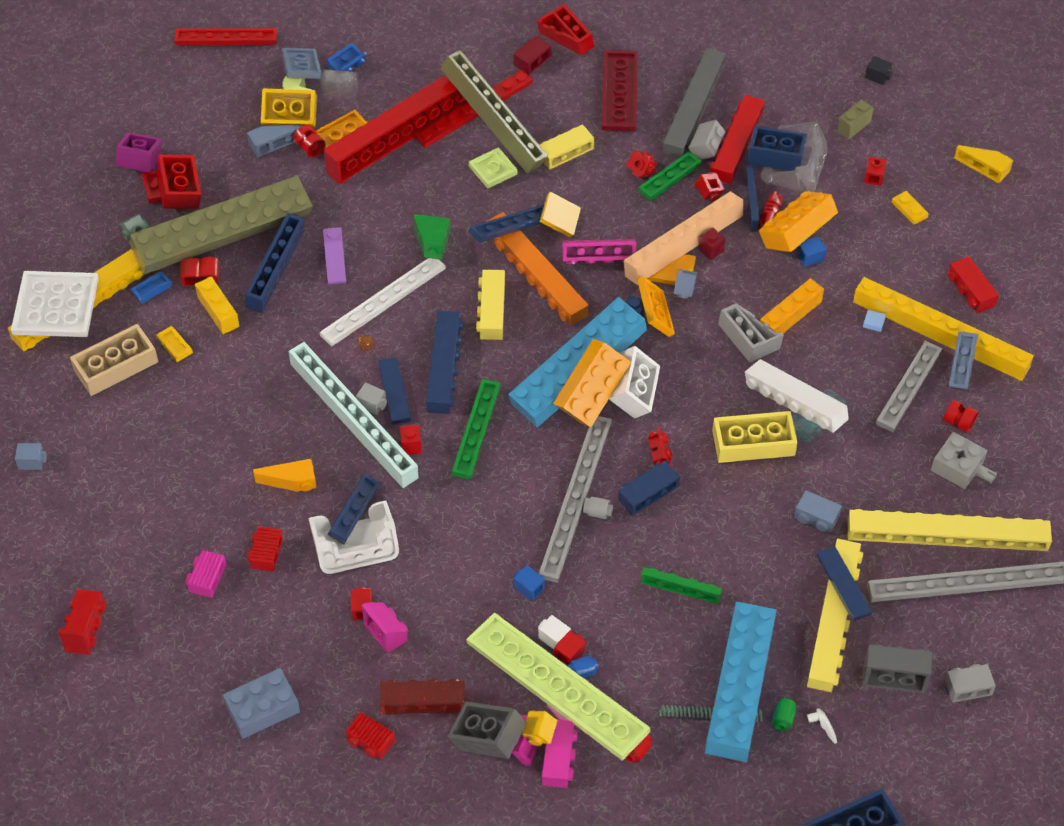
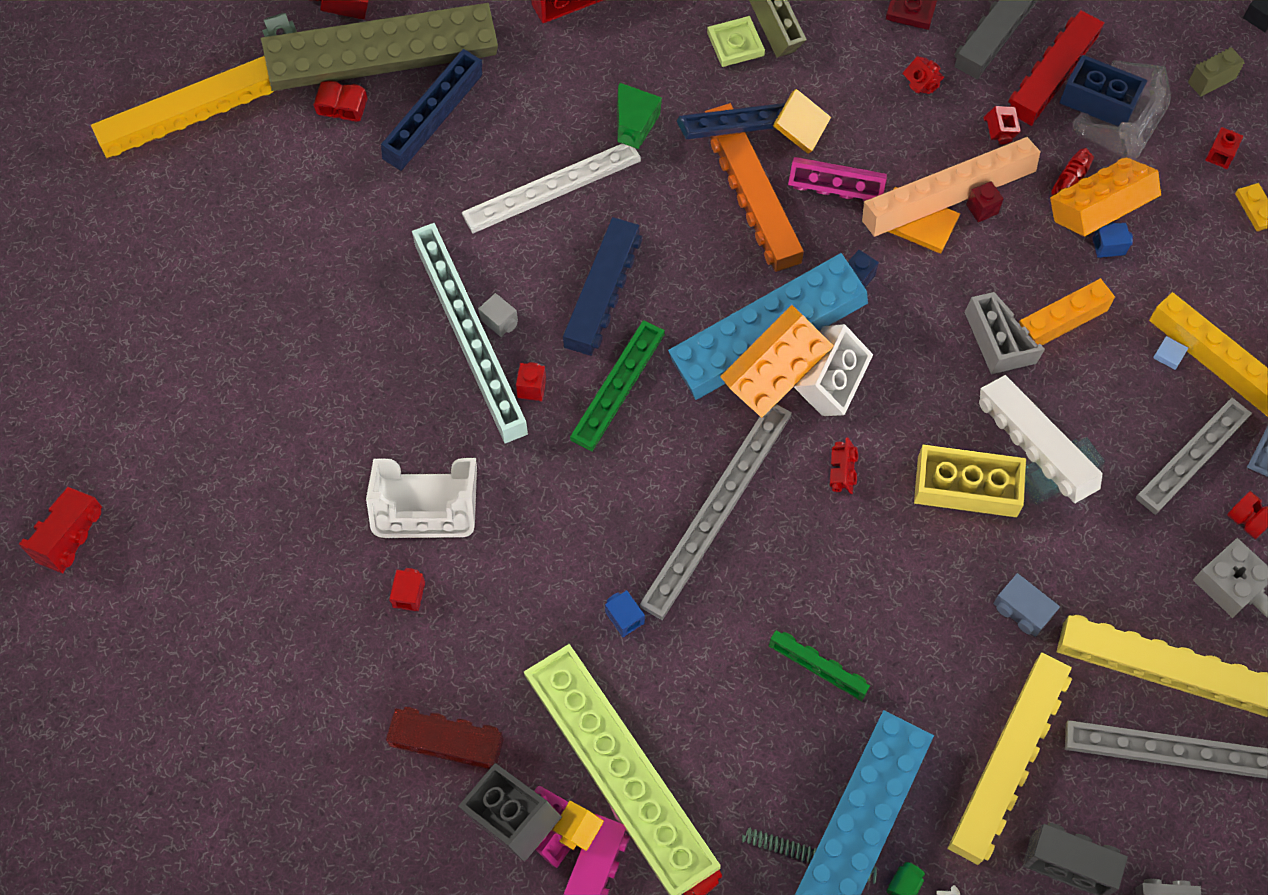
camera: 15 degrees right, 10 degrees up
(30, 456) = (69, 296): sand blue brick -> none
(55, 304) = (152, 107): white plate -> none
(114, 359) = (203, 193): tan brick -> none
(151, 287) = (278, 108): blue plate -> none
(174, 344) = (283, 188): yellow plate -> none
(206, 573) = (230, 502): dark pink brick -> none
(217, 305) = (347, 150): yellow brick -> none
(261, 703) = (244, 695): sand blue brick -> none
(265, 548) = (312, 485): red brick -> none
(290, 476) = (375, 396): light orange slope -> none
(334, 255) = (508, 115): medium lavender slope -> none
(353, 508) = (434, 457): dark blue tile -> none
(365, 342) = (513, 237): clear orange hinge -> none
(369, 736) = (365, 775): red brick -> none
(384, 625) = (426, 627): dark pink slope -> none
(394, 391) = (531, 310): dark blue tile -> none
(492, 304) = (683, 222): light yellow brick -> none
(552, 631) = (637, 690): white brick -> none
(567, 146) = (835, 32): light yellow brick -> none
(570, 648) = (651, 718): red brick -> none
(584, 666) = (661, 749): blue brick -> none
(598, 507) = (741, 530): light grey brick -> none
(648, 487) = (813, 518): dark blue brick -> none
(655, 306) = (889, 272): light orange tile -> none
(669, 176) = (955, 98): green plate -> none
(685, 283) = (936, 248): sand blue brick -> none
(707, 139) = (1015, 60): light grey brick -> none
(751, 199) = (1053, 151): dark blue tile -> none
(844, 583) = (1034, 721): dark blue tile -> none

